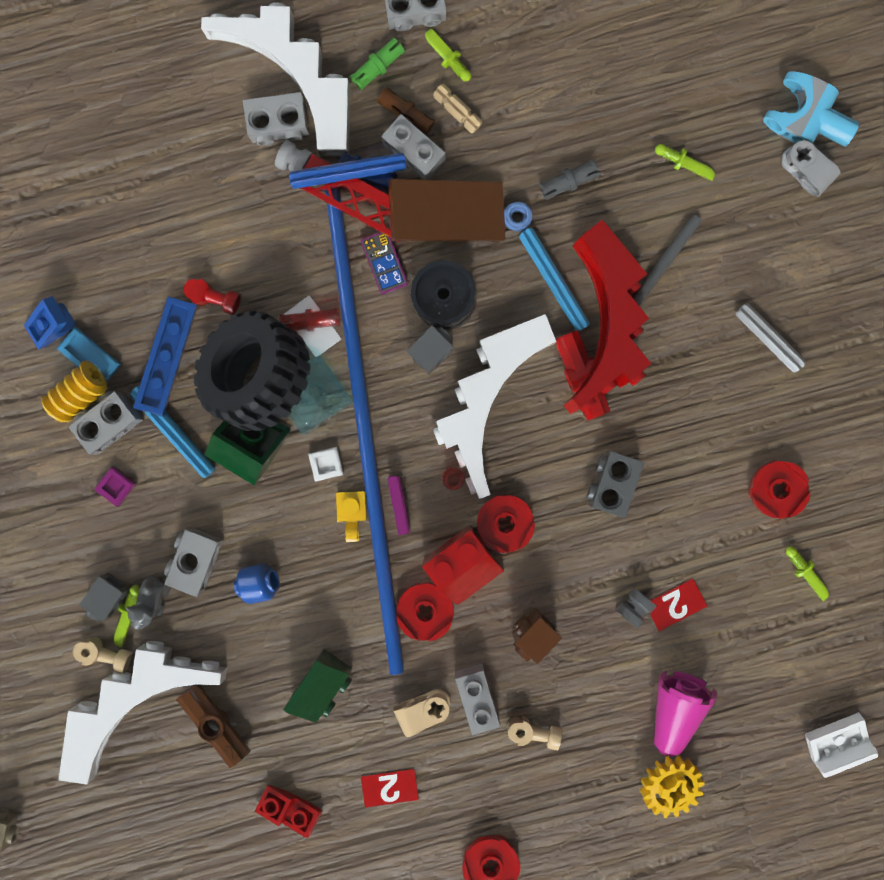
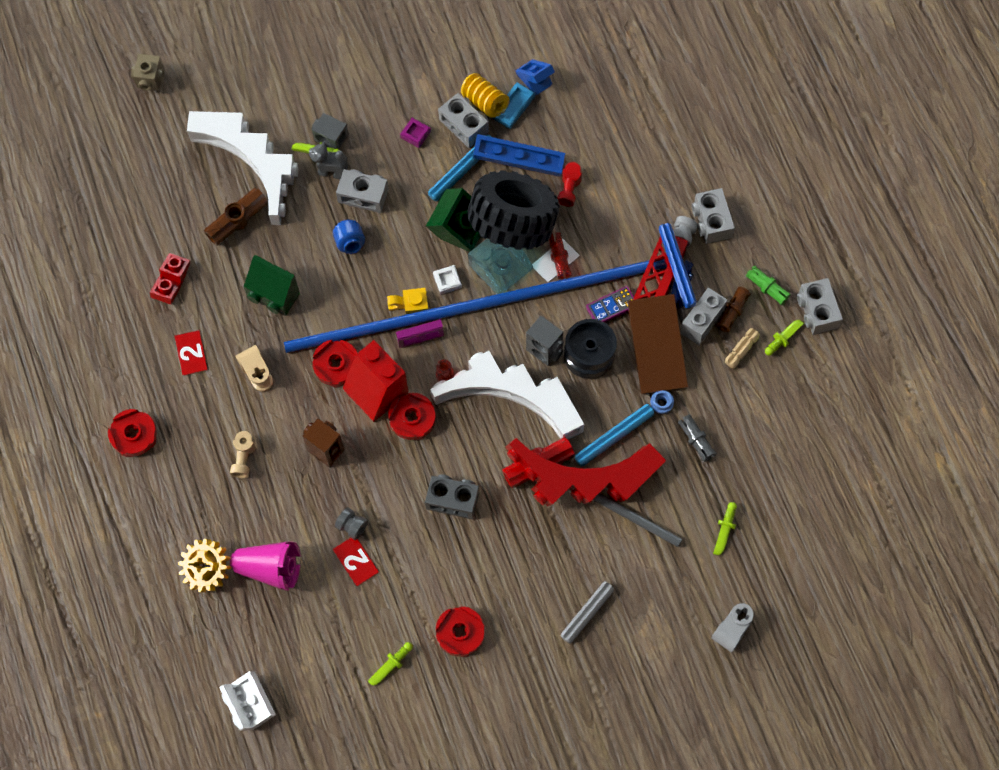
camera: 85 degrees right, 20 degrees down
(92, 650) = (287, 127): tan leg -> none
(302, 60) = (735, 249): white arch -> none
(477, 699) = (268, 406): light grey brick -> none
(813, 113) = (778, 626): medium azure connector -> none

